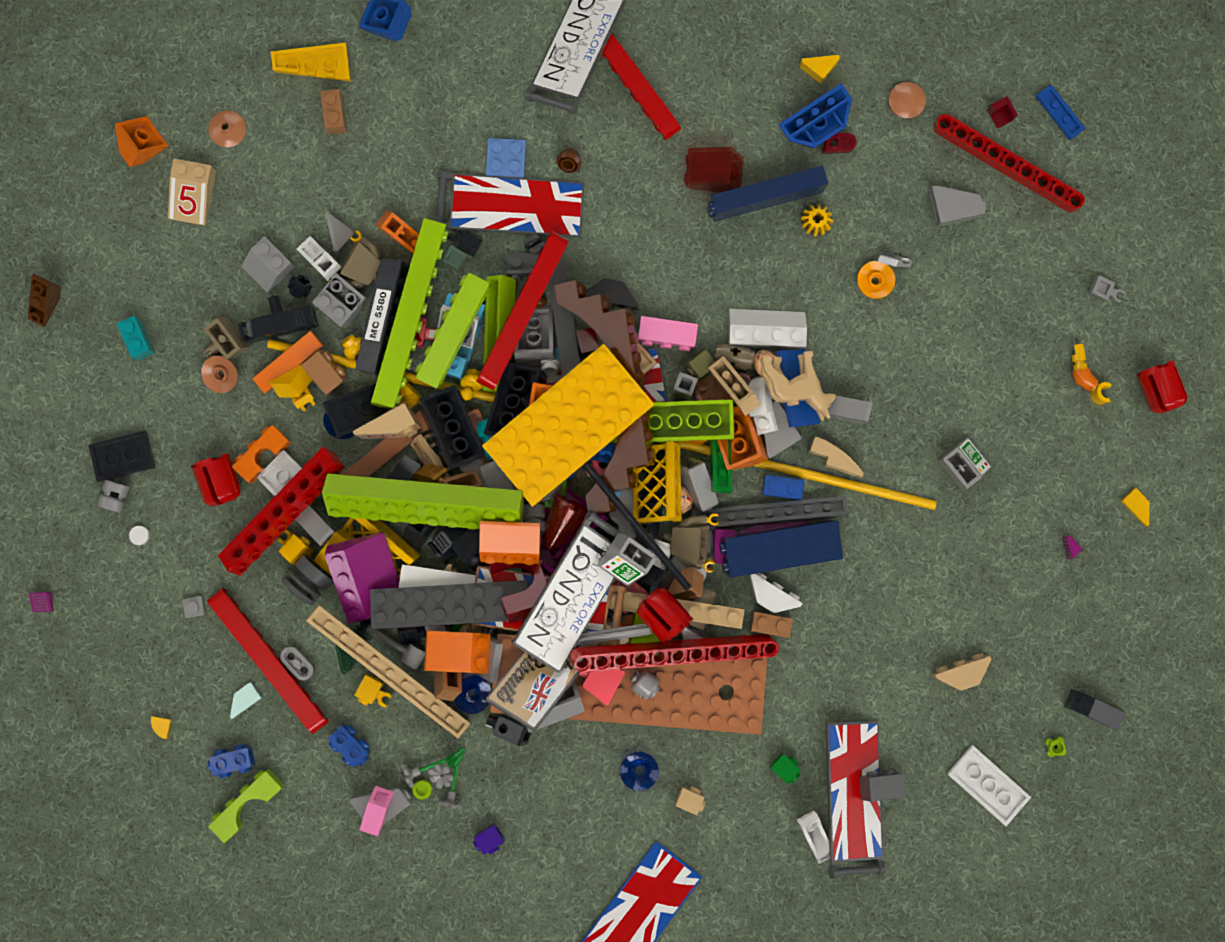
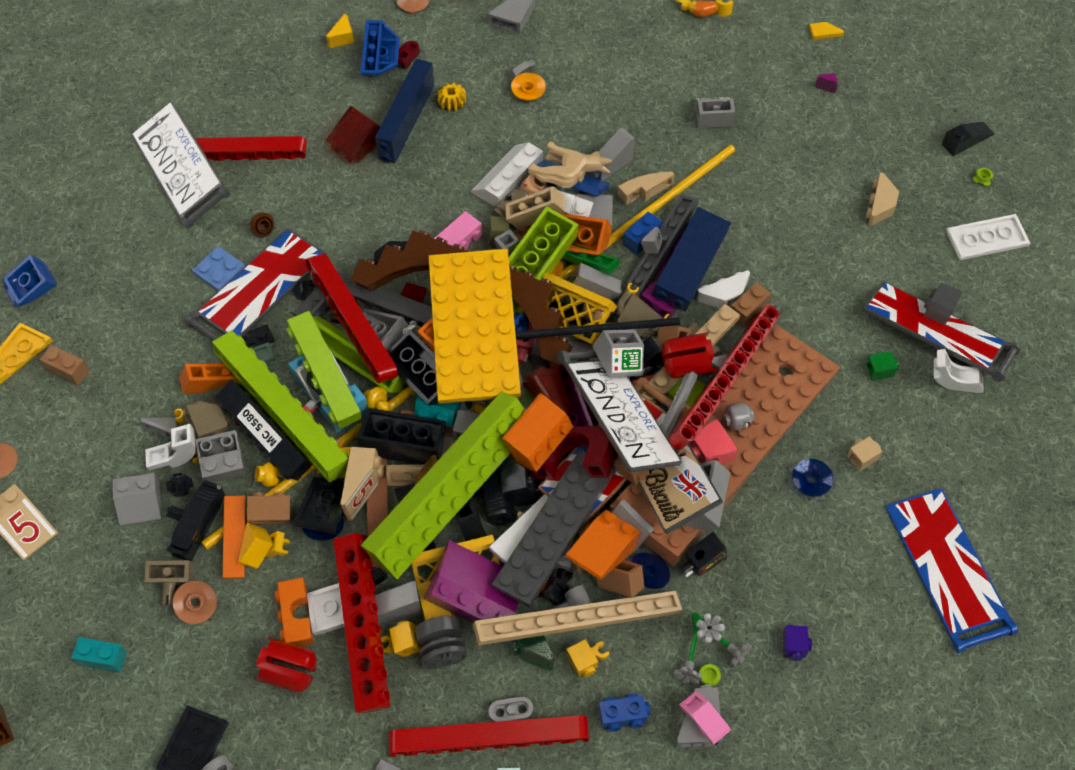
camera: 50 degrees left, 25 degrees down
(774, 505) = (652, 241): none -> light grey slope

